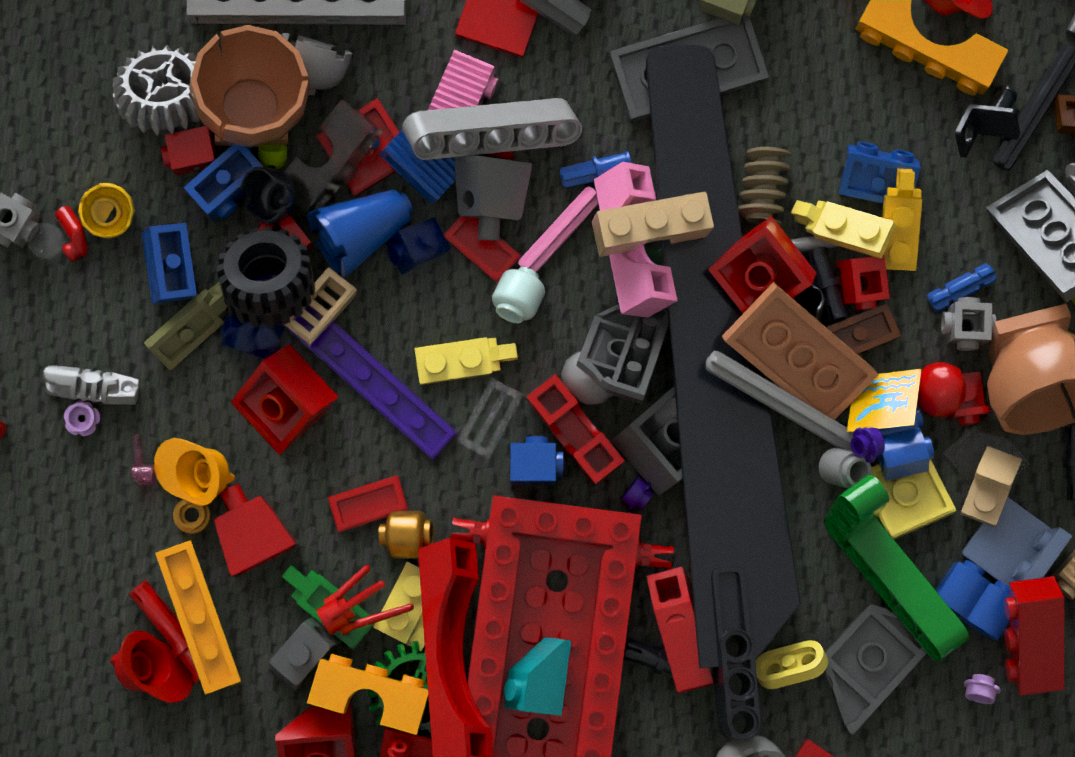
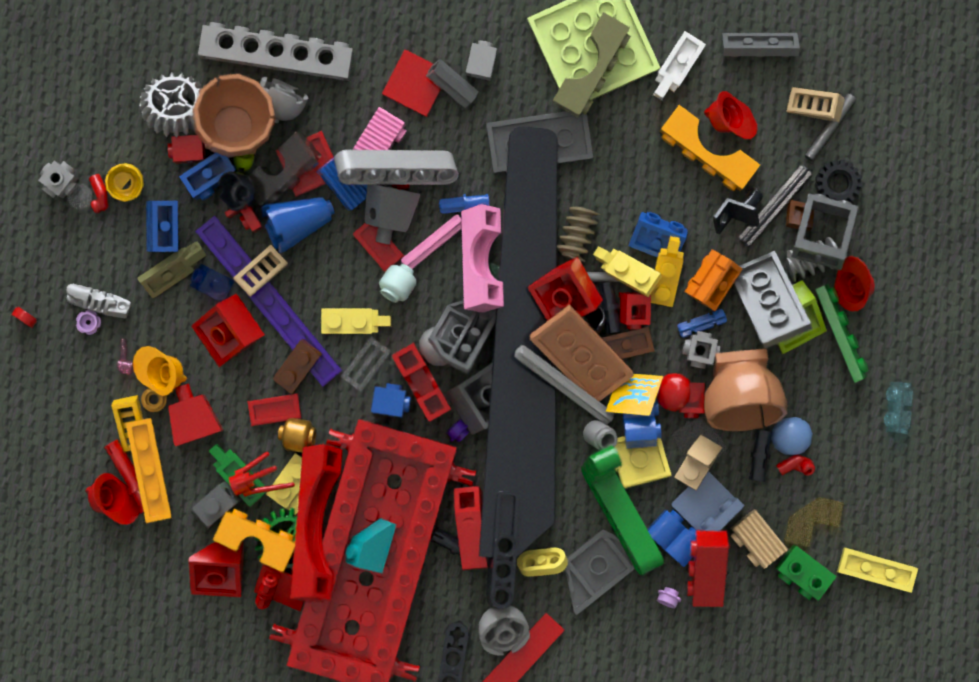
camera: 10 degrees right, 5 degrees up
(139, 531) = (117, 405): none -> yellow slope
(265, 254) = (226, 230): black tyre -> none
(392, 435) = (297, 366): none -> reddish brown plate
(417, 245) = (333, 237): clear blue bracket -> none
(633, 225) = (494, 251): tan arch -> none
(867, 443) = (616, 422): dark purple plate -> none
(968, 222) = (713, 280): none -> orange brick

